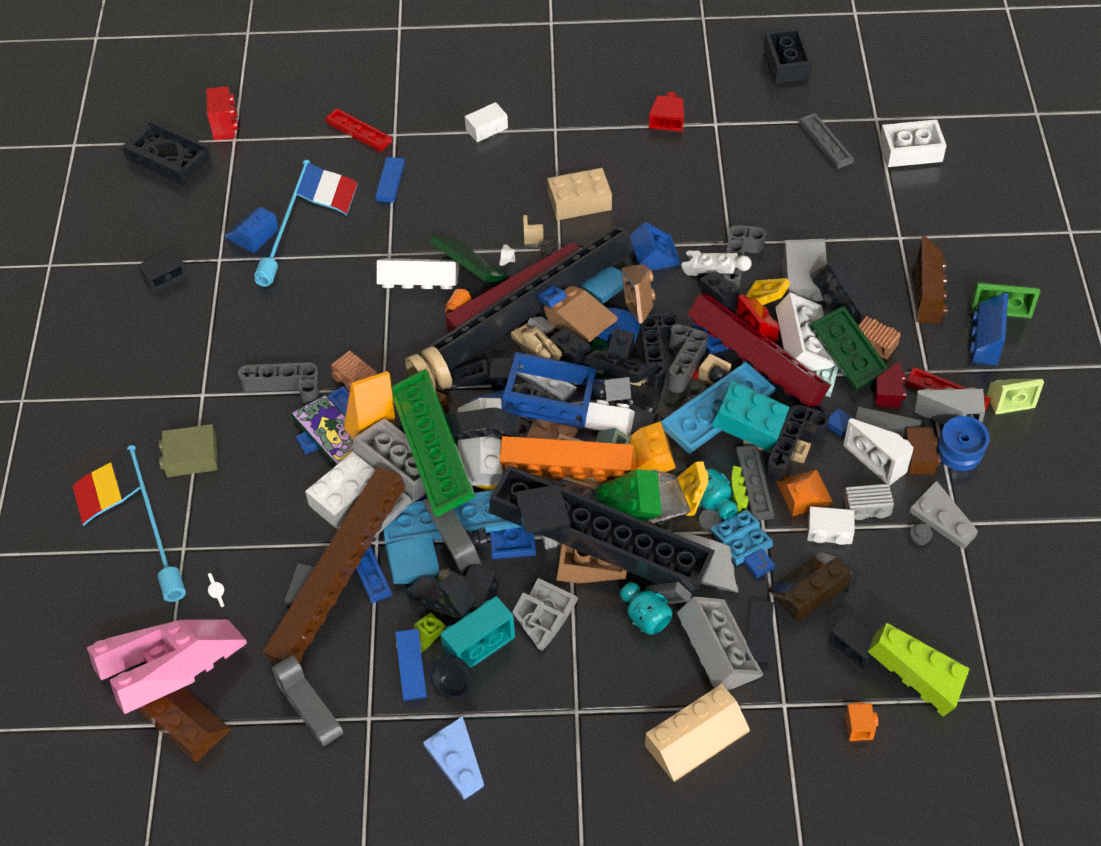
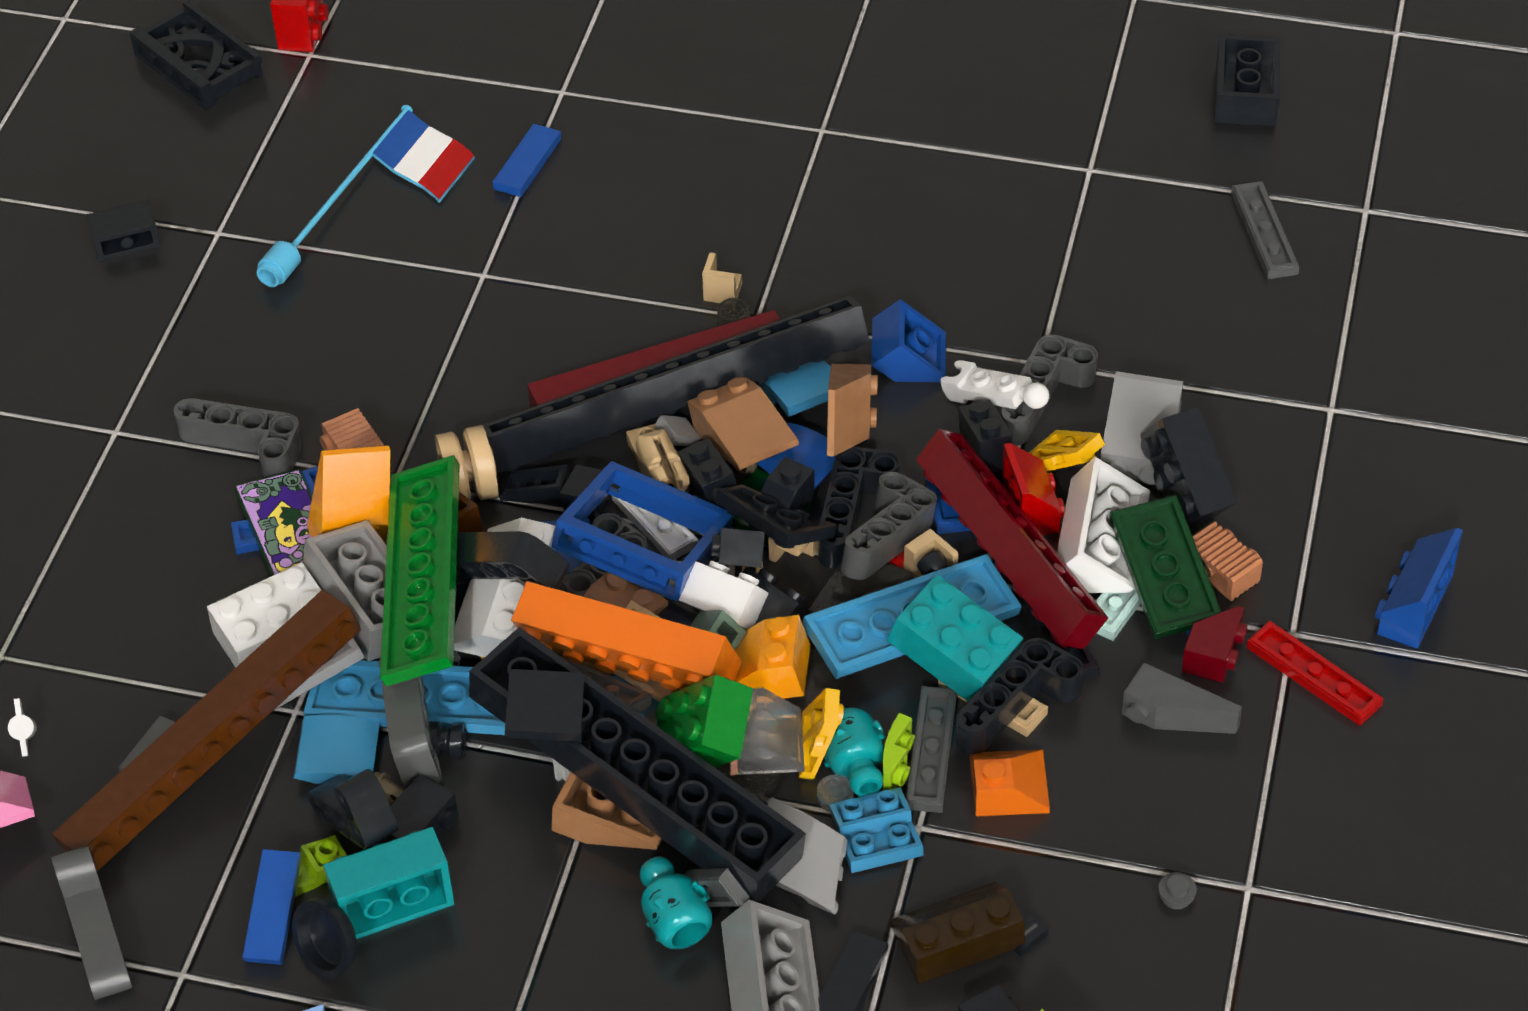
camera: 15 degrees right, 5 degrees down
(188, 450) = (60, 510): olive brick -> none
(254, 229) = (286, 197): blue slope -> none
(358, 129) = (507, 74): red tile -> none
(373, 577) = (267, 759): blue tile -> none
(417, 272) = (512, 310): white slope -> none
(457, 300) = (560, 362): orange brick -> none
(468, 259) = (599, 304): dark green tile -> none
(486, 122) = (711, 98): white brick -> none
(507, 255) = (665, 312): white piece -> none
(512, 543) = (504, 759): blue tile -> none
(544, 611) = (512, 875): light grey slope -> none
(552, 296) = (703, 386): blue tile -> none
(579, 194) = (817, 238): tan brick -> none
(667, 113) = (1012, 137): red torso -> none
(759, 563) = (889, 877): blue tile -> none
(830, 525) = (1028, 842): white brick -> none
(838, 422) = (1109, 683): blue tile -> none
(869, 501) = (1106, 818): light grey brick -> none
(879, 450) = (1153, 739): white slope -> none
(912, 143) = (1406, 259): white brick -> none
(924, 455) = (1227, 756): reddish brown brick -> none
(930, 283) = (1347, 490): reddish brown slope -> none
(944, 516) = (1228, 870): light grey wing -> none
(950, 403) = (1304, 696): light grey slope -> none
(962, 443) = (1300, 758): blue wheel -> none
(1014, 394) = (1422, 700): yellowish green slope -> none
(1020, 298) = (1484, 546): bright green slope -> none

